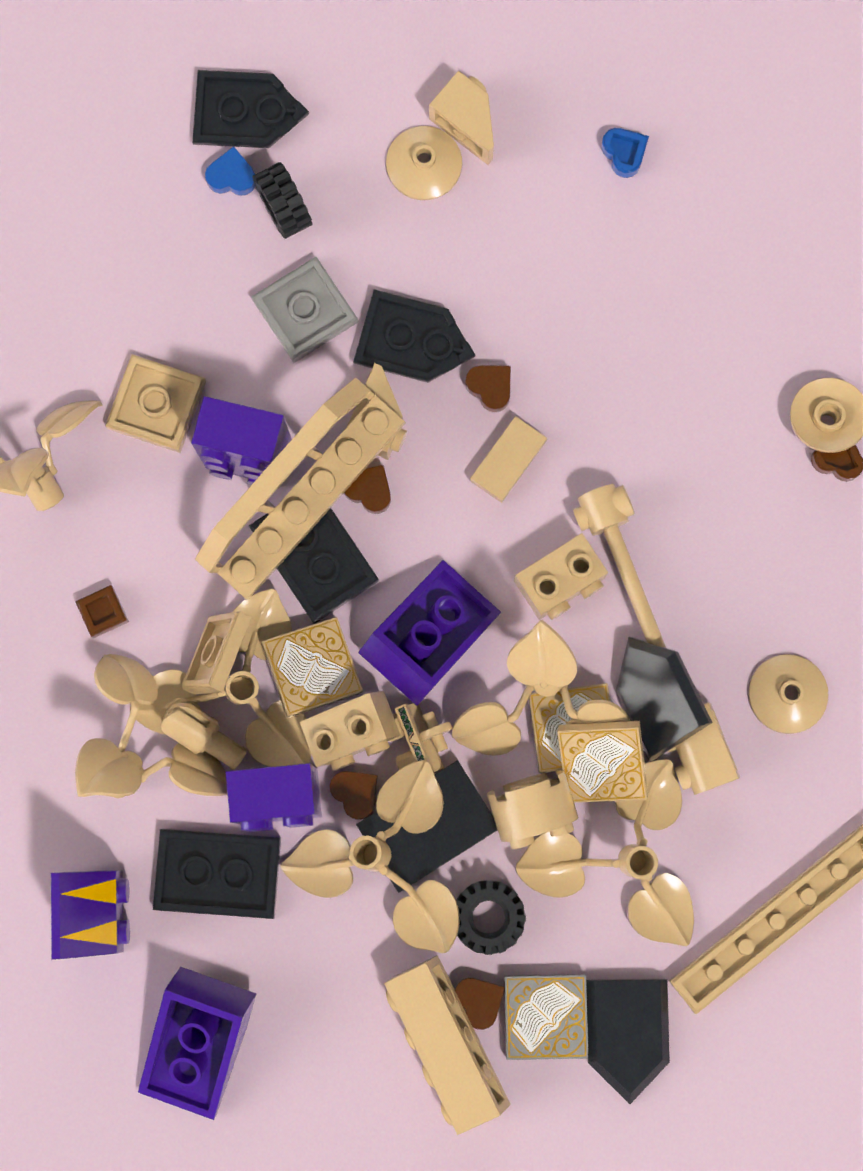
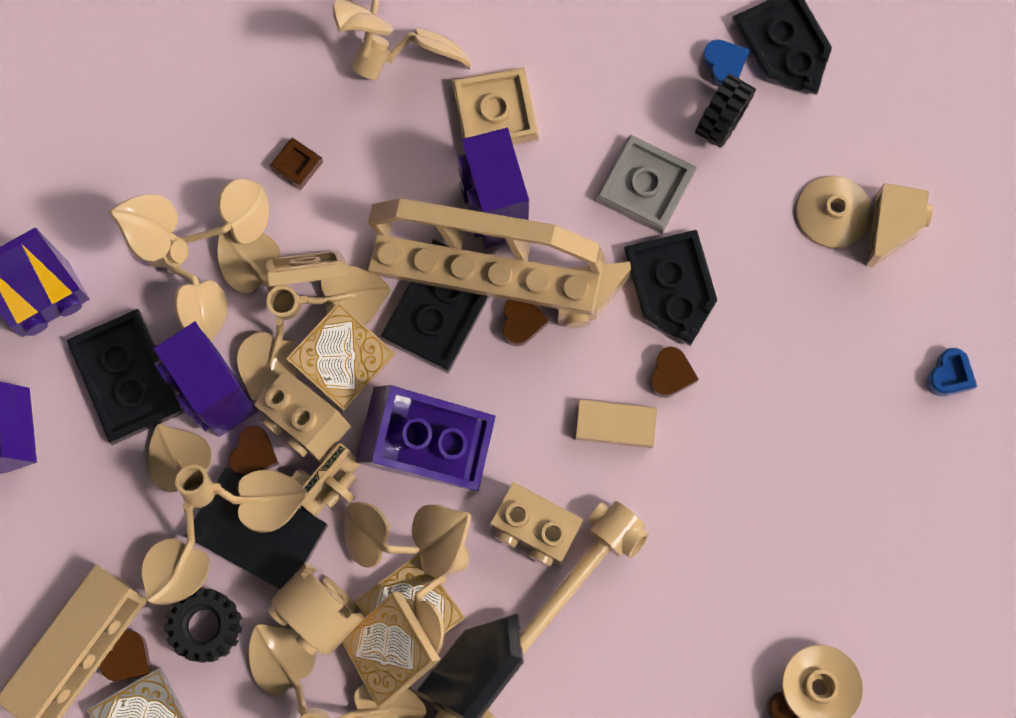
camera: 60 degrees right, 5 degrees down
(200, 733) = (233, 293): tan arm -> none

